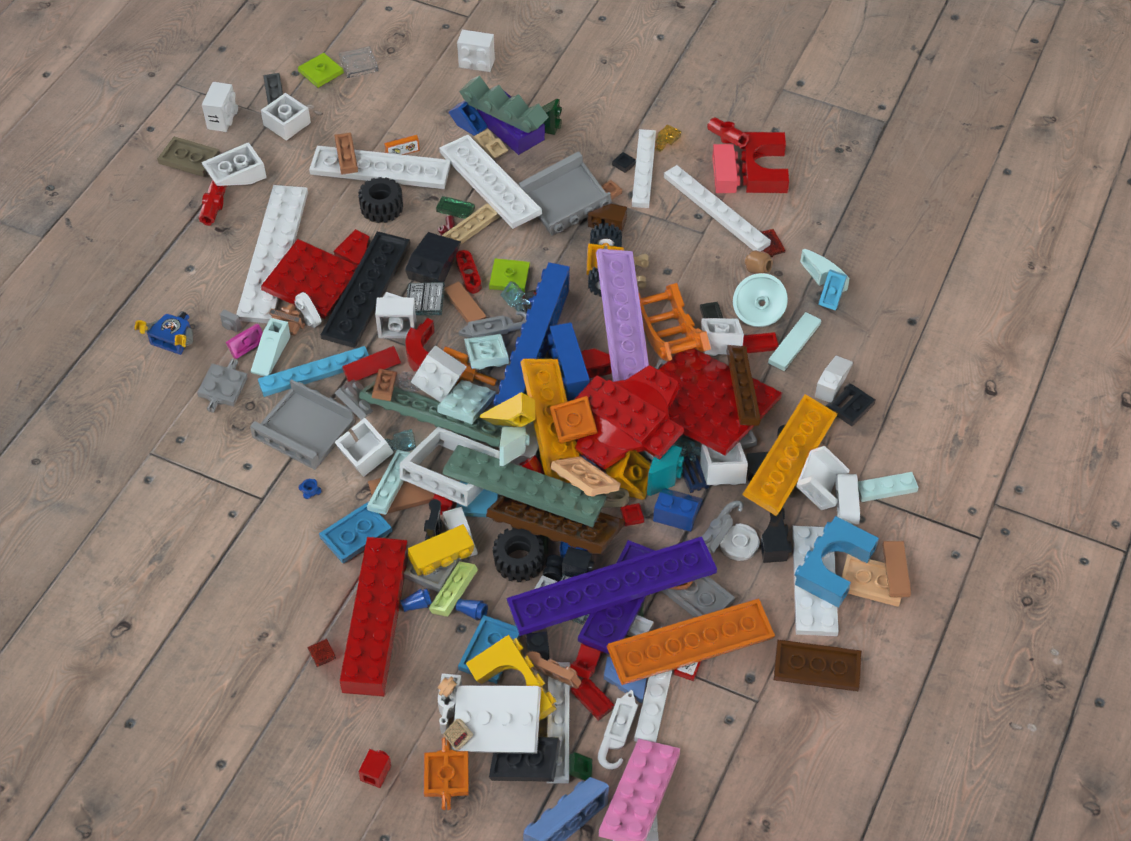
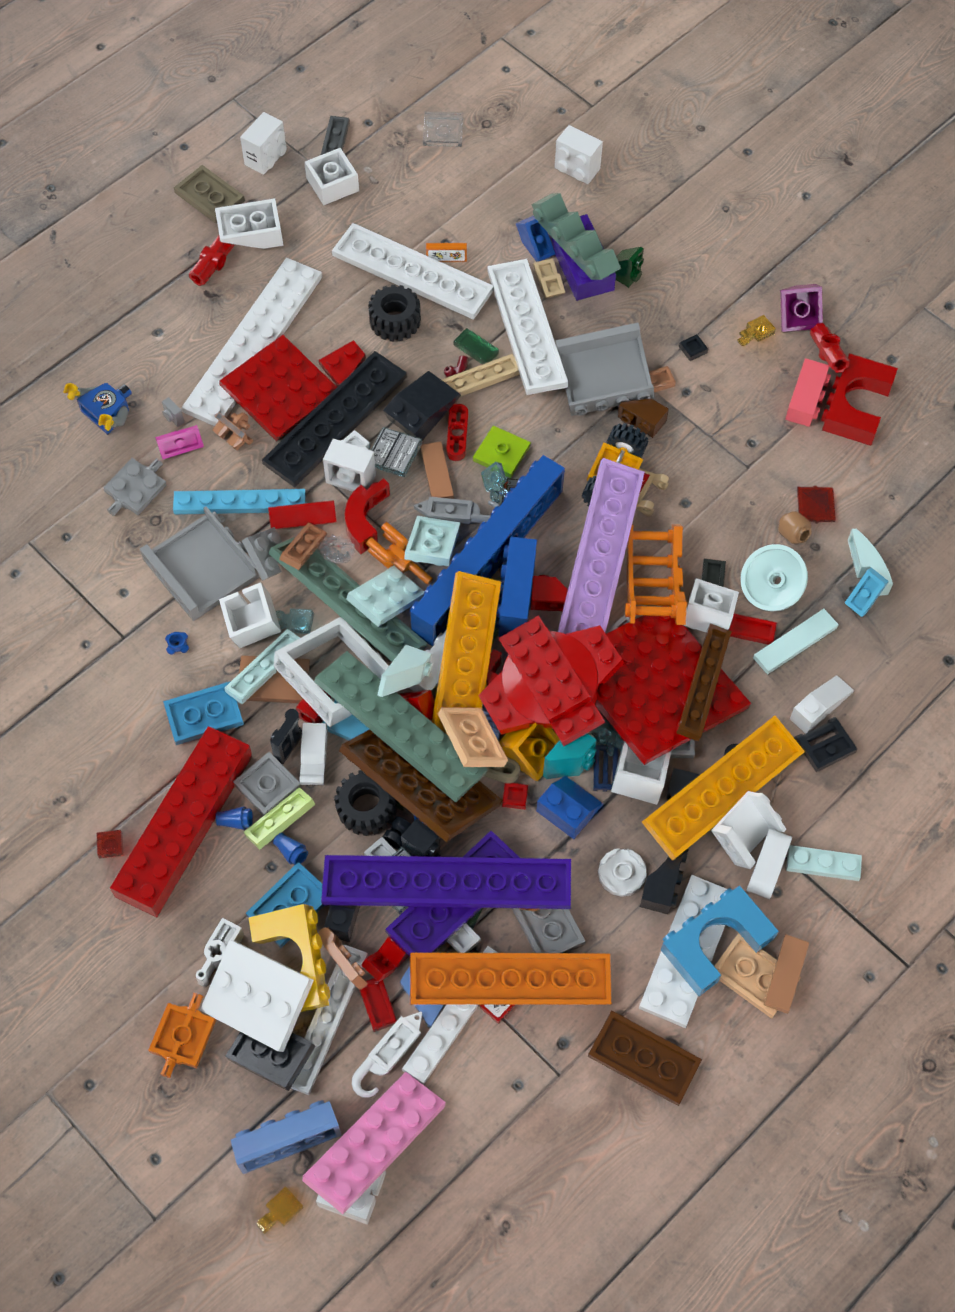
camera: 20 degrees right, 10 degrees up
(271, 346) = (202, 458): light aqua slope -> none
(309, 311) = (260, 435): white plate -> none
(320, 70) = (396, 127): lime plate -> none
(346, 153) = (379, 242): nougat tile -> none
(375, 768) = (110, 1000): red brick -> none
(438, 374) = (364, 553): white brick -> none
(441, 550) = (280, 770): yellow brick -> none
(447, 686) = (217, 937): light nougat plate -> none
(458, 734) = (209, 996): tan tile -> none
(512, 412) = (424, 632): yellow slope -> none
(573, 419) = (487, 663): orange tile -> none
(580, 766) = (328, 1082): dark green plate -> none
(644, 168) = (713, 363): white plate -> none
(694, 111) = (801, 307): none -> magenta slope
(717, 209) = (776, 442): white plate -> none
(720, 526) = (602, 849): light grey plate -> none

